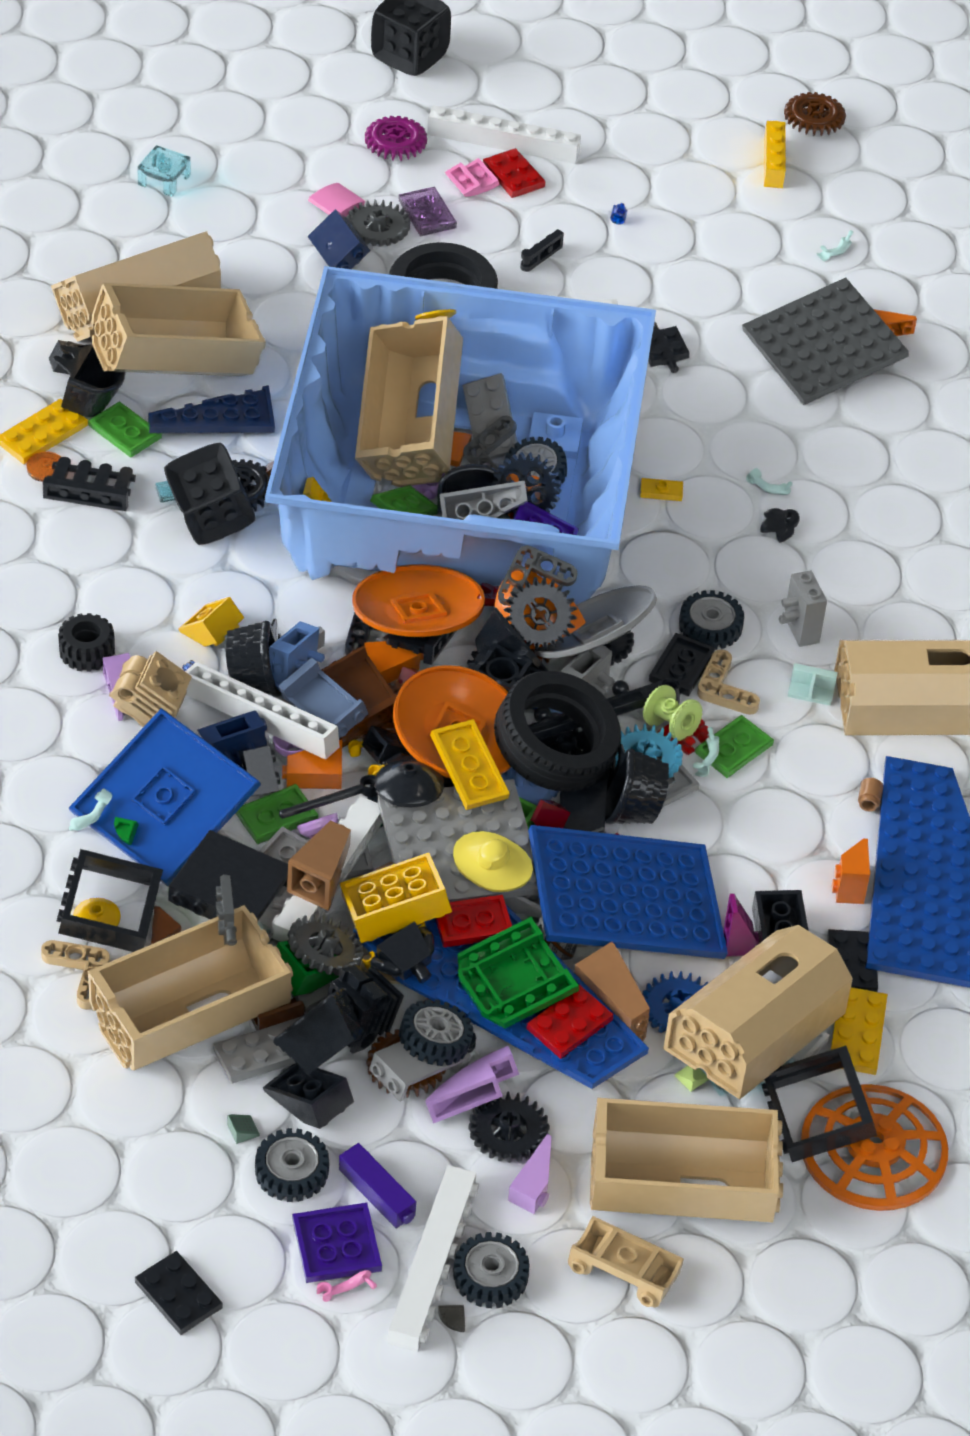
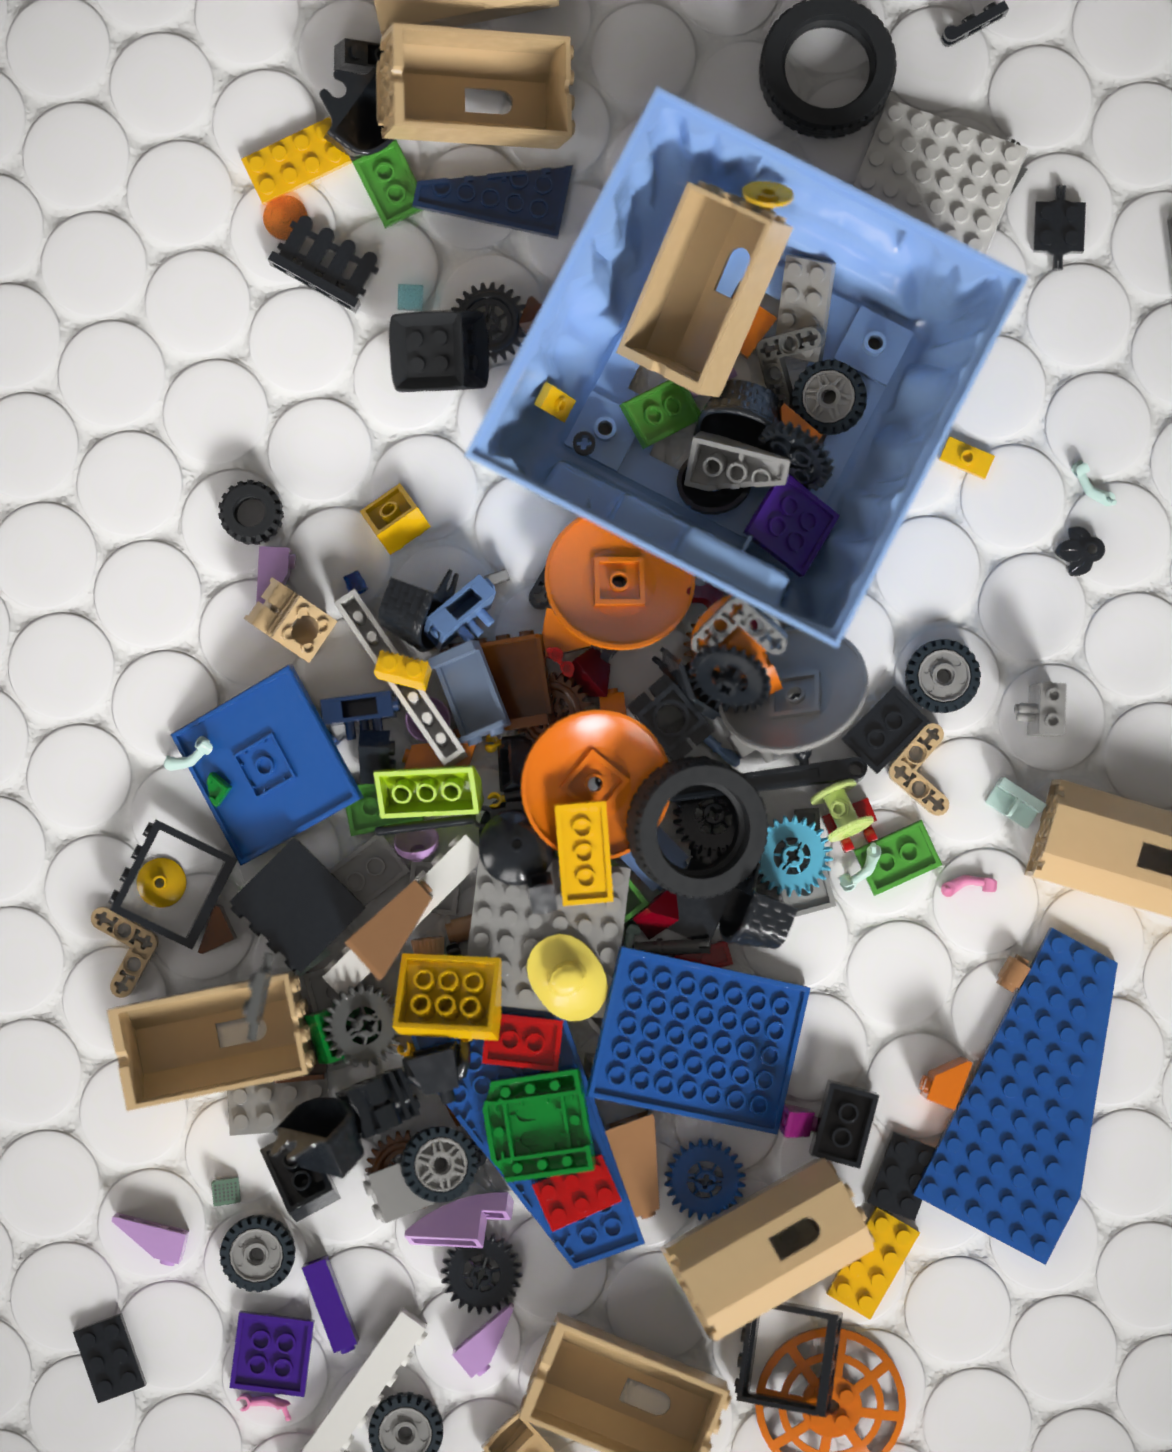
camera: 25 degrees right, 40 degrees up
(188, 1177) = (157, 1239): none -> lavender slope
(262, 685) = (402, 670): none -> yellow brick
(315, 769) = (429, 791): none -> lime slope
(388, 669) = (557, 655): none -> red piece
(445, 798) = (541, 892): none -> brick
(817, 743) = (951, 887): none -> bright pink piece

